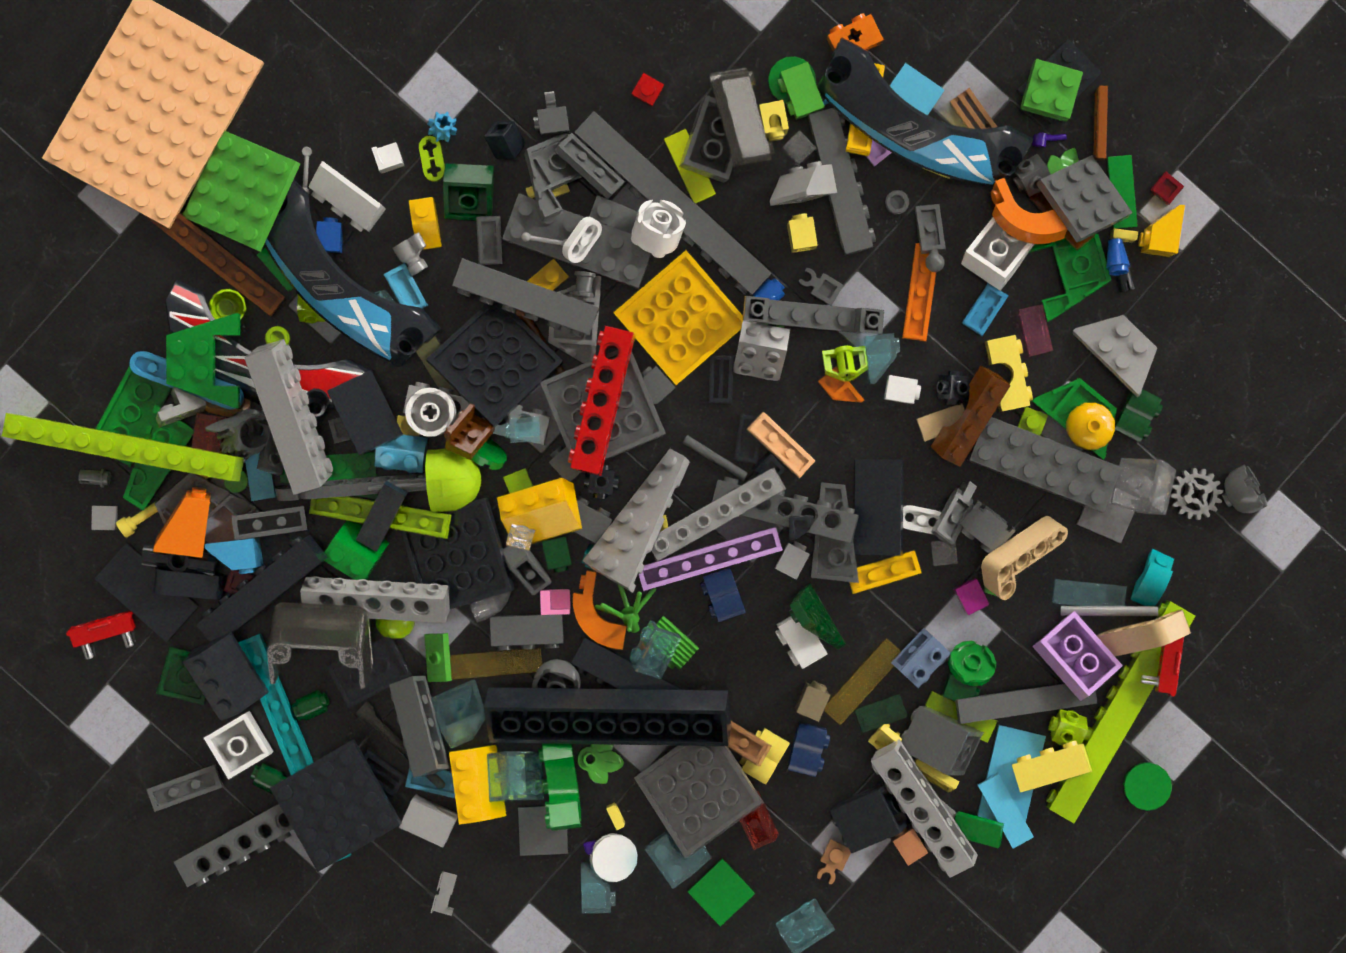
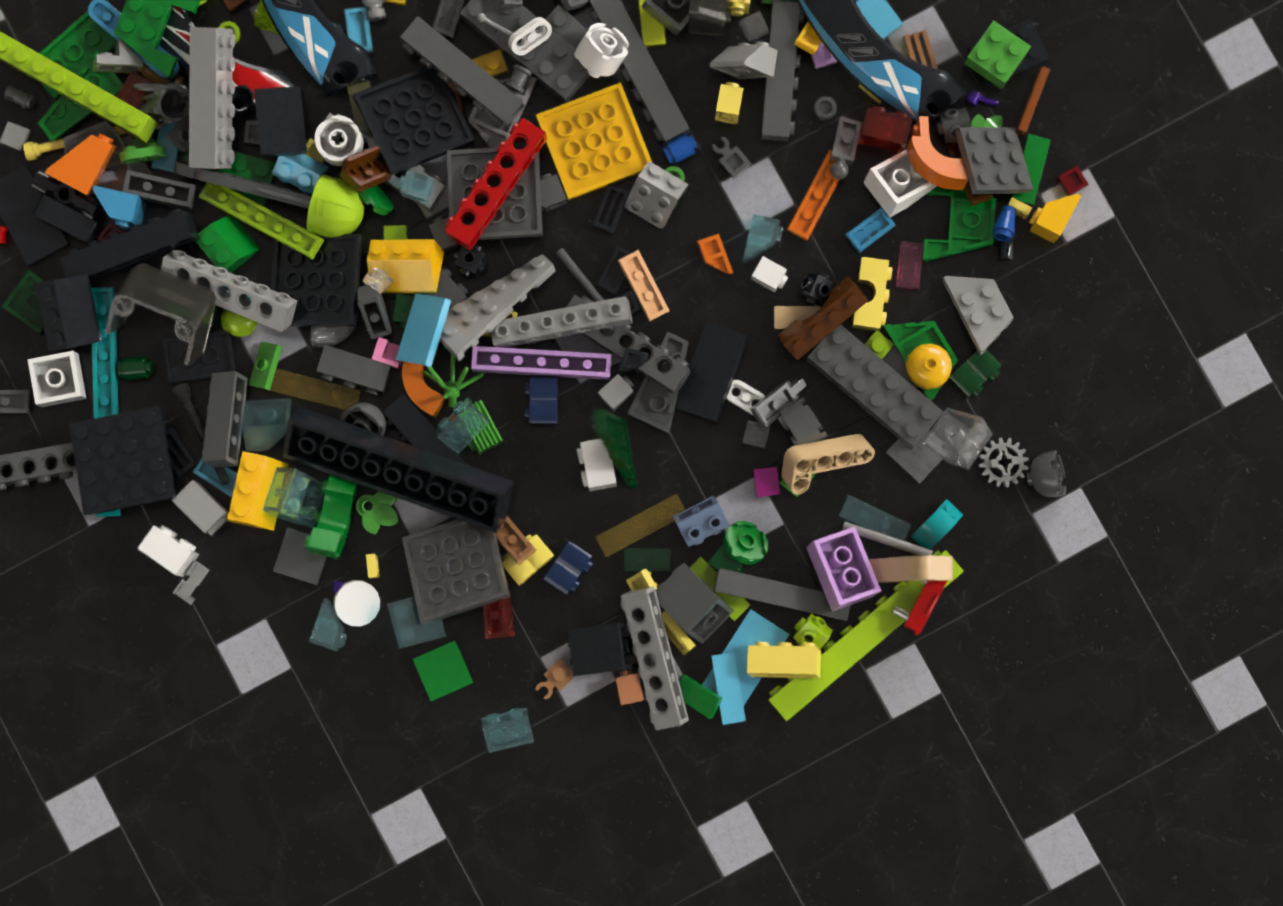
camera: 20 degrees right, 5 degrees down
(230, 497) = (149, 153): none -> bright green plate
(266, 777) = (68, 415): dark green brick -> none
(381, 516) = (261, 218): black tile -> none
(412, 873) = (168, 551): none -> white brick
(583, 570) = (423, 330): none -> medium azure tile
(812, 700) = (588, 523): dark tan brick -> none
(813, 316) = (711, 179): dark grey slope -> none
(843, 354) = (730, 224): lime piece -> none
(886, 571) = (697, 434): yellow tile -> none
(966, 205) = (885, 129): none -> clear red brick
(1147, 786) = (866, 714): green tile -> none

